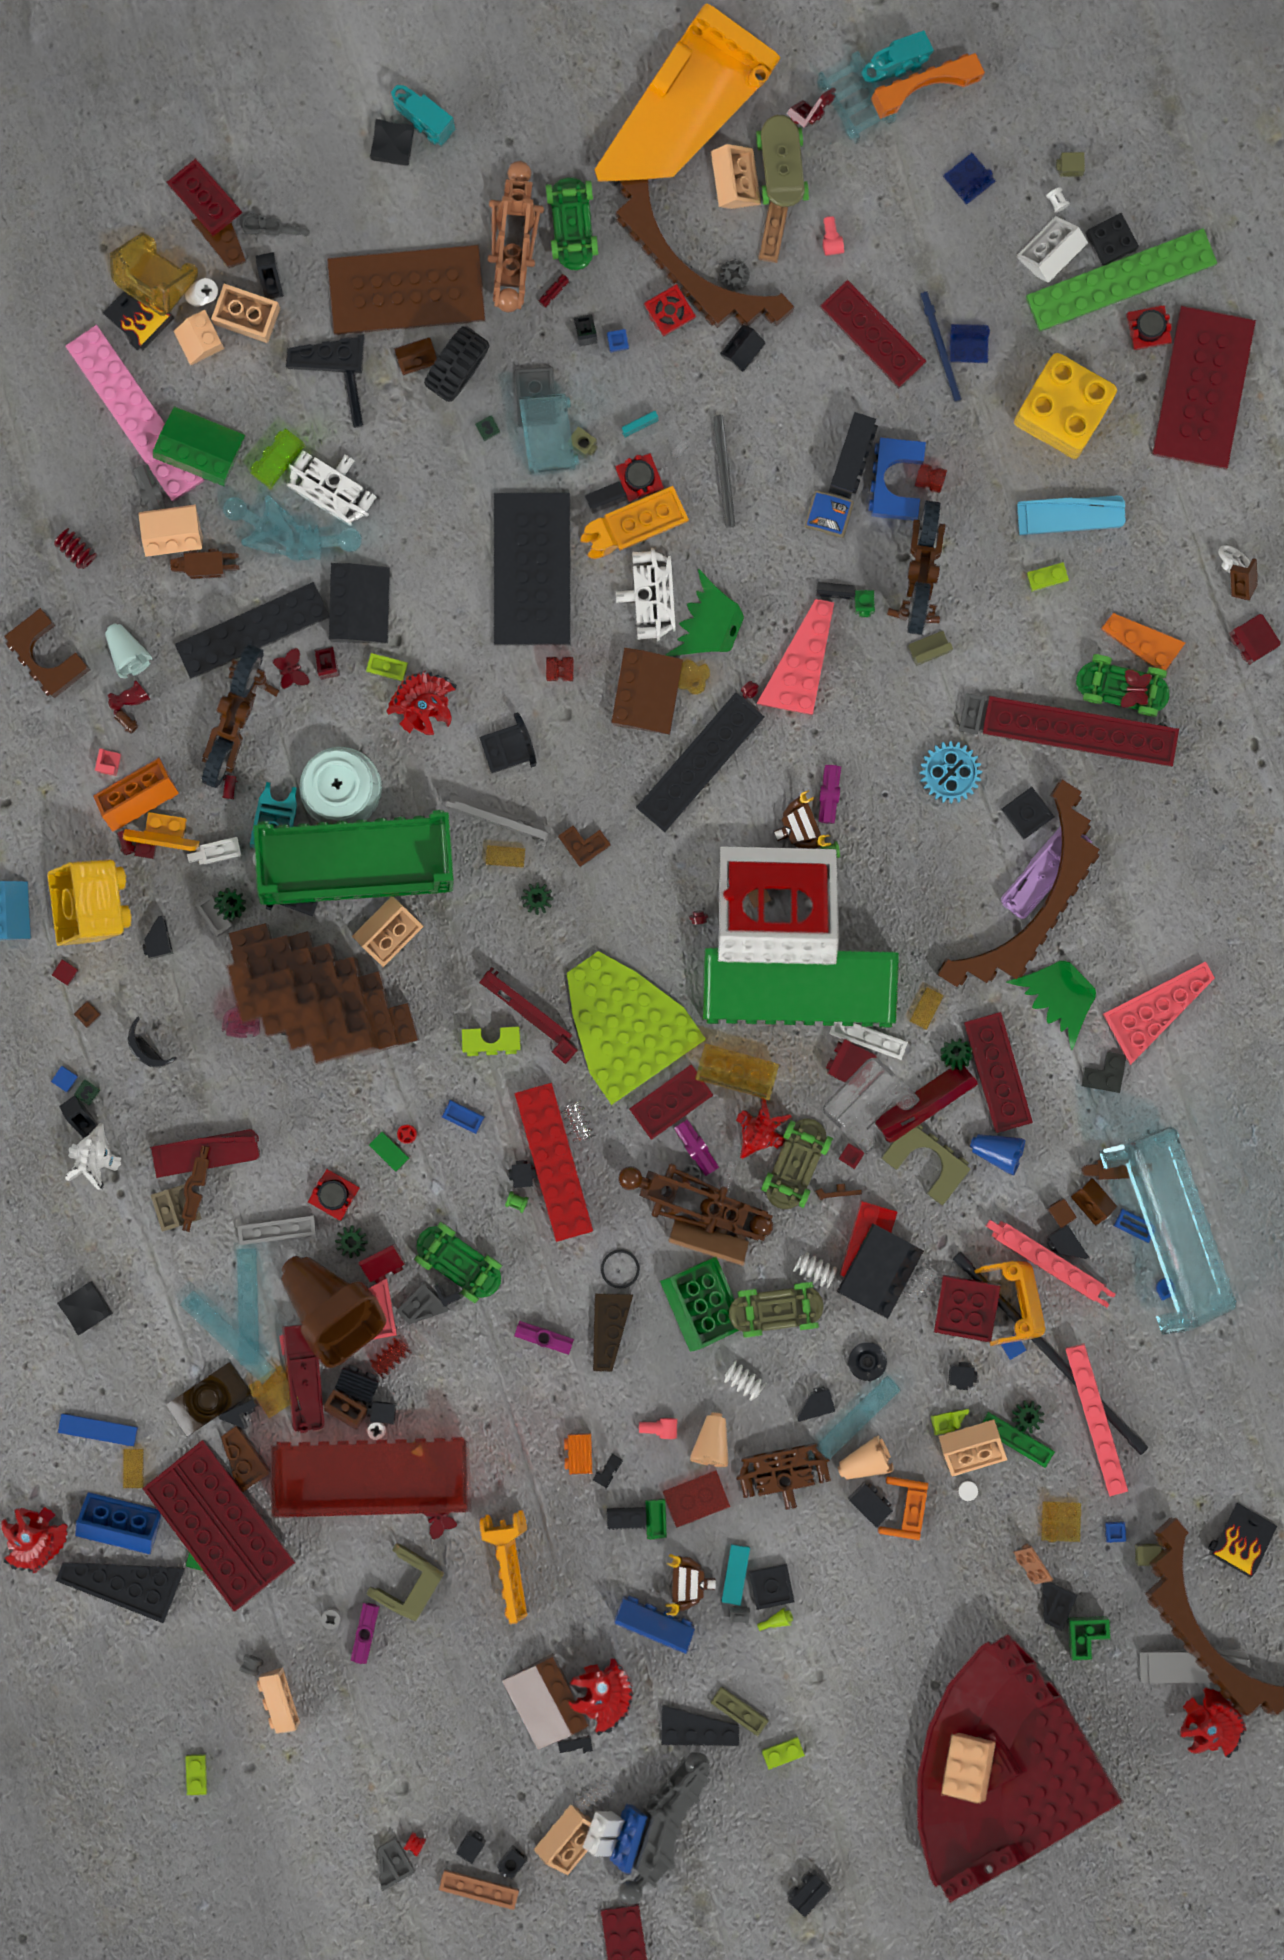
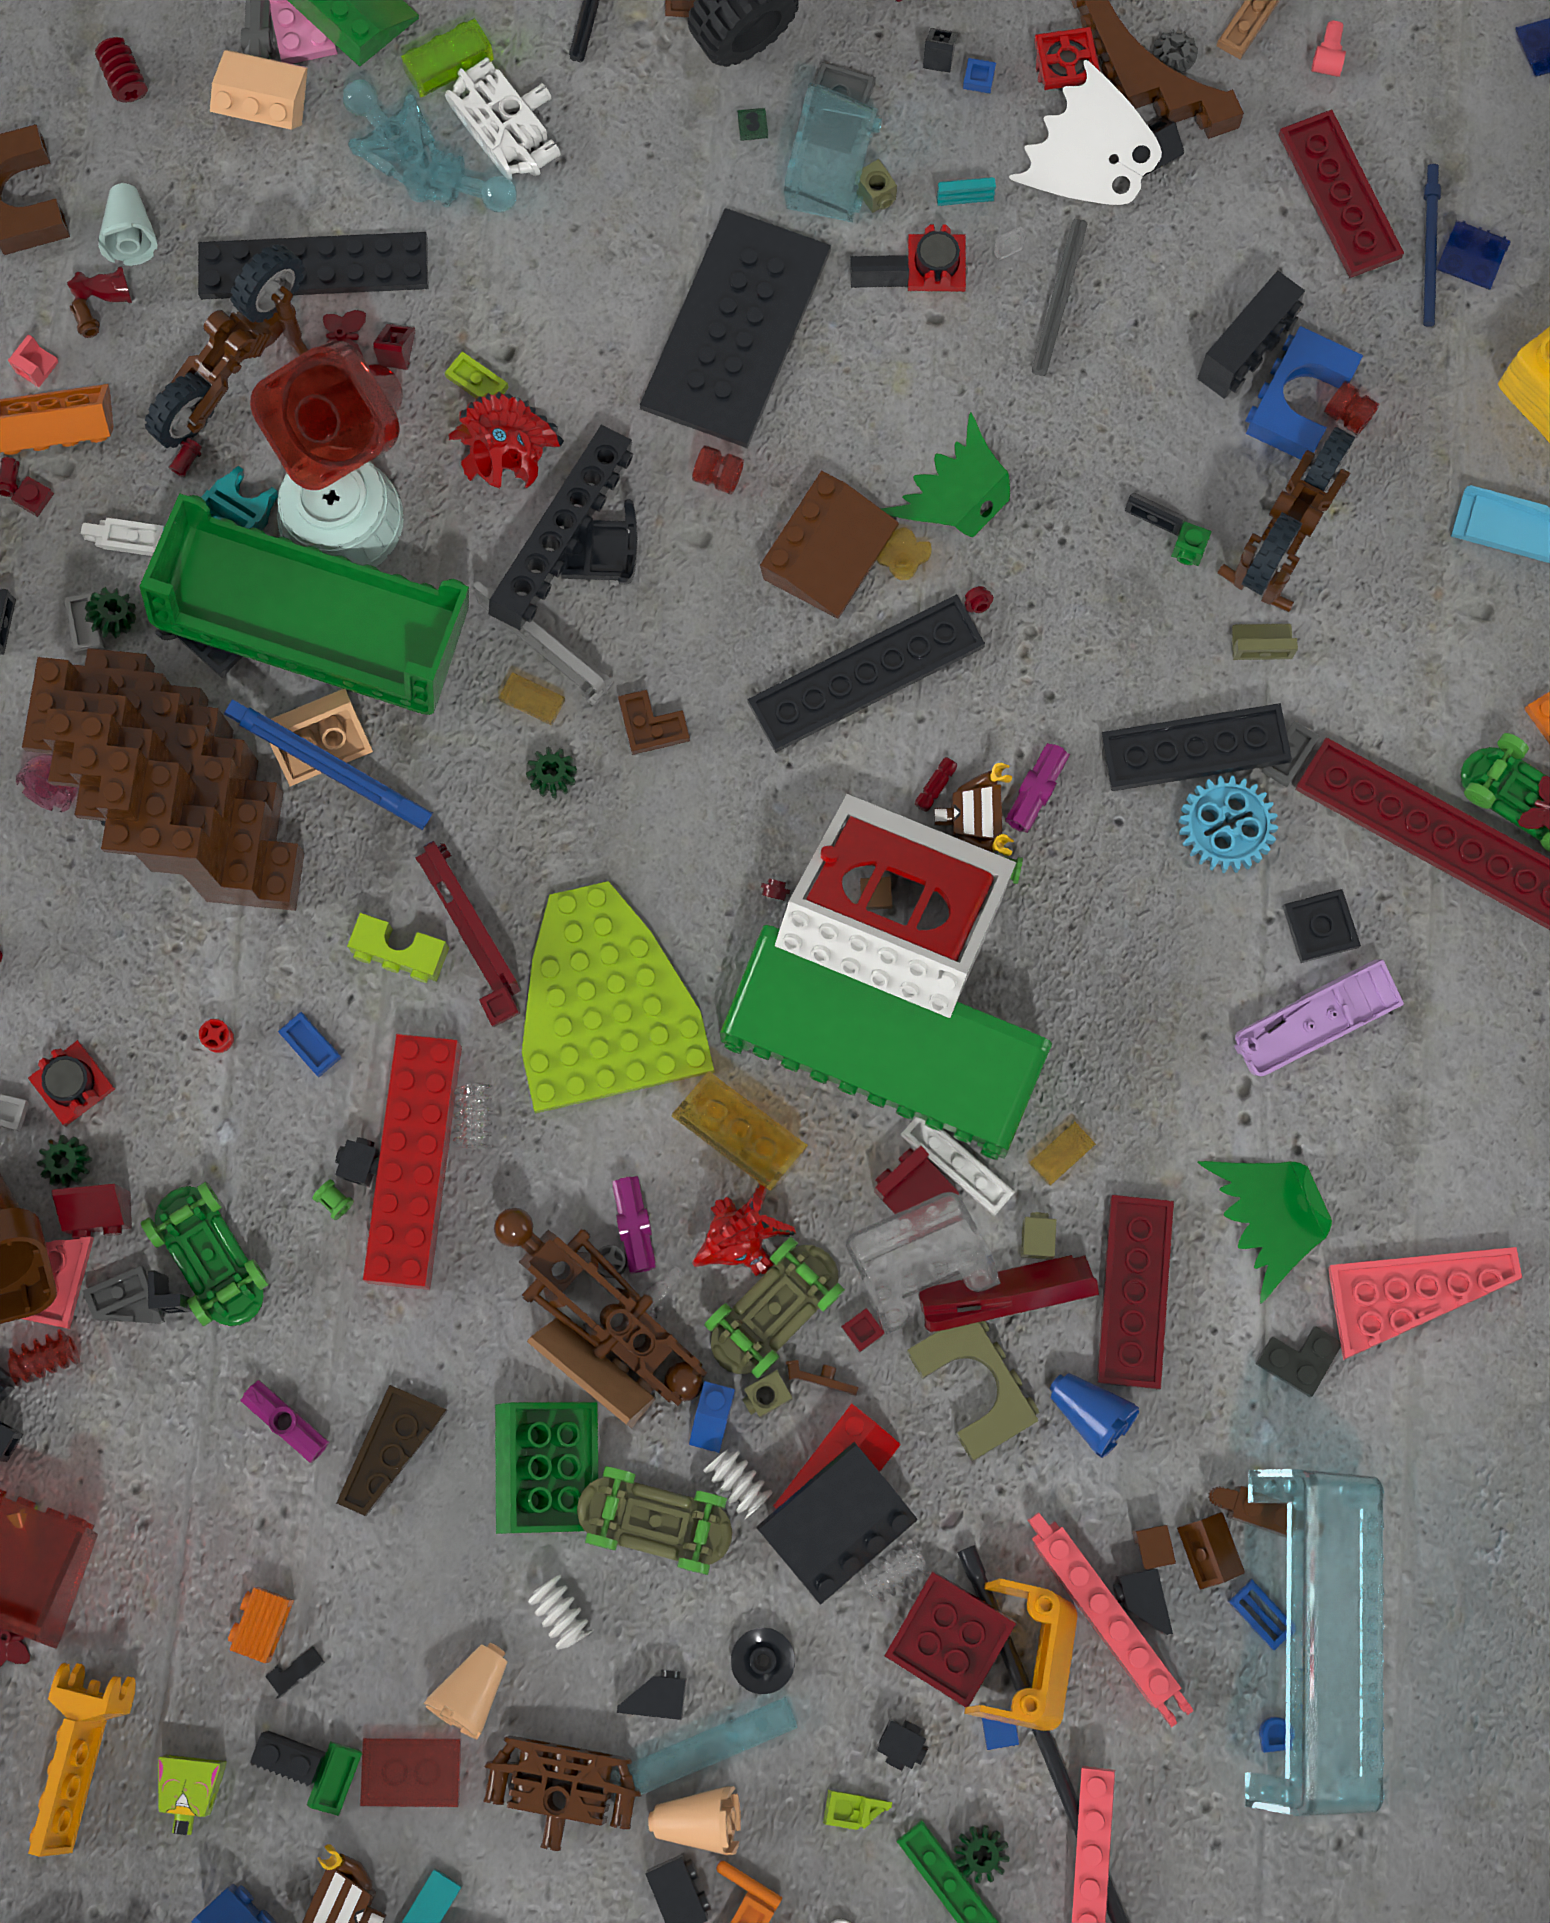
camera: 20 degrees right, 10 degrees down
(163, 831) = (65, 479): light orange plate -> none
(204, 564) = (287, 154): reddish brown hinge -> none
(321, 739) = (328, 413): none -> clear red cone
(359, 603) = (474, 281): black slope -> none
(389, 1151) = (179, 1052): green tile -> none
(406, 948) = (328, 764): none -> blue piece
(479, 811) = (604, 447): none -> black brick
(577, 1556) = (188, 1788): none -> lime torso
(602, 1269) = (422, 1346): black piece -> none
(634, 523) = (903, 315): light orange hinge -> none
(664, 594) = (909, 421): white piece -> none
(664, 1428) = (408, 1638): coral pin -> none
(670, 1102) = (623, 1142): dark red plate -> none
(700, 363) = (1083, 138): none -> white piece
(768, 815) = (936, 784): none -> dark red axle
(785, 1238) = (712, 1416): none -> blue slope
(798, 673) = (1058, 604): coral wing -> none
(811, 1205) = (771, 1381): none -> olive brick
(829, 514) = (1187, 406): slope -> none
(914, 733) = (1196, 747): none -> black plate
(931, 1062) = (1038, 1236): none -> olive brick
(948, 1054) = (1082, 1237): dark green gear -> none
(972, 1448) = (874, 1869): light nougat slope -> none
(1047, 576) = (1472, 606): lime plate -> none
(1074, 861) = (1370, 1015): reddish brown arch -> none

